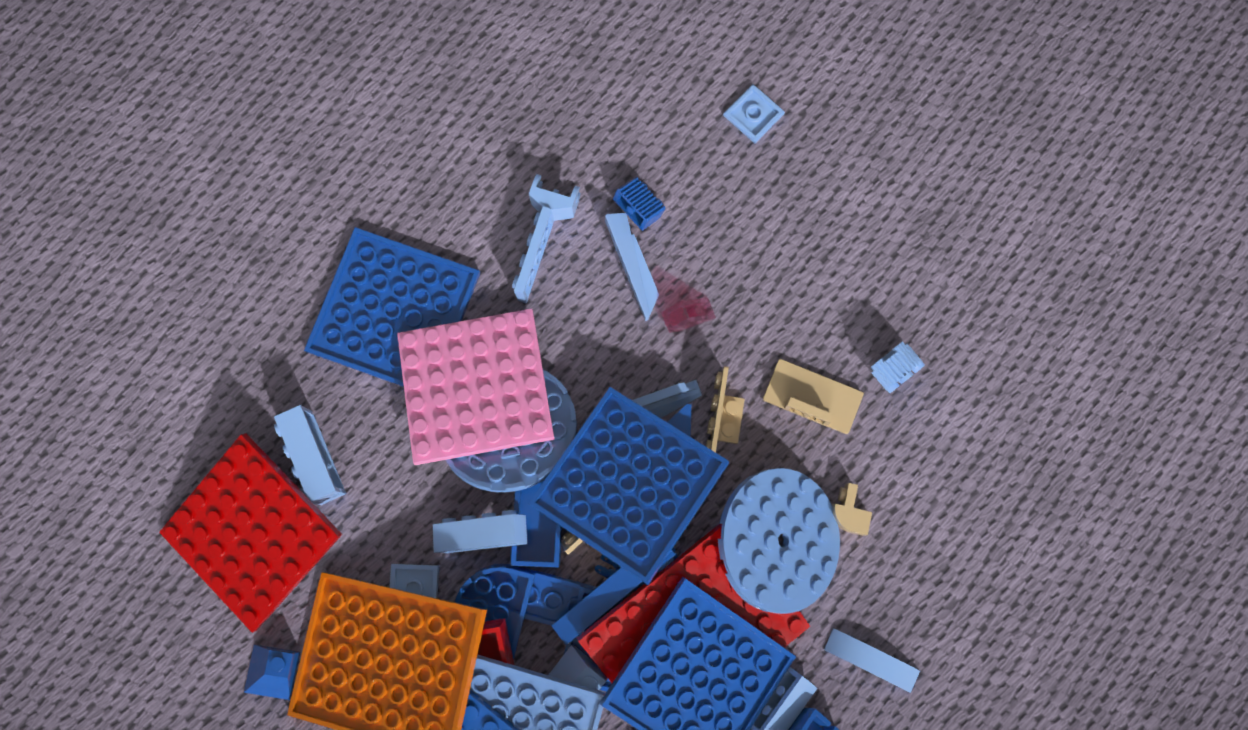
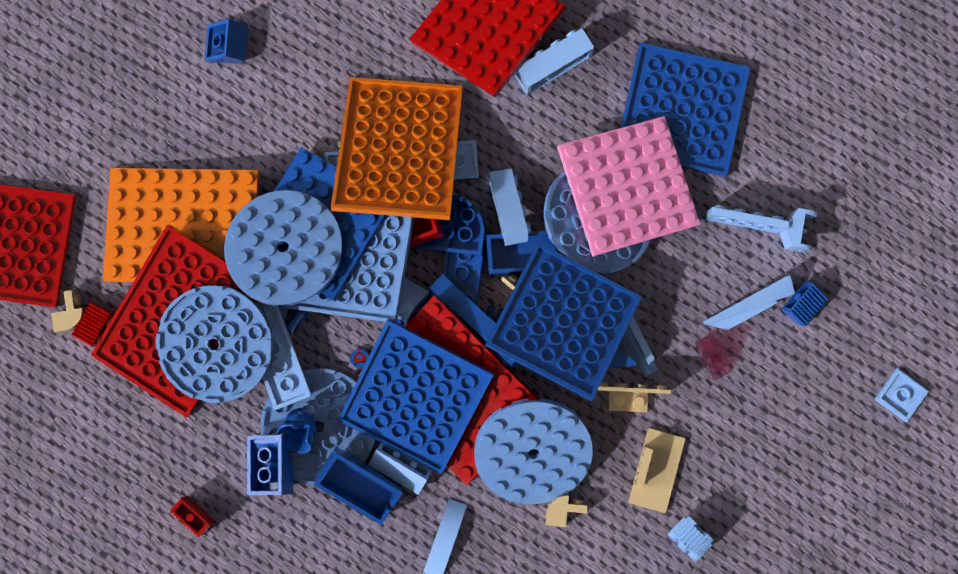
camera: 80 degrees right, 5 degrees up
(272, 672) = (380, 60): blue slope -> none

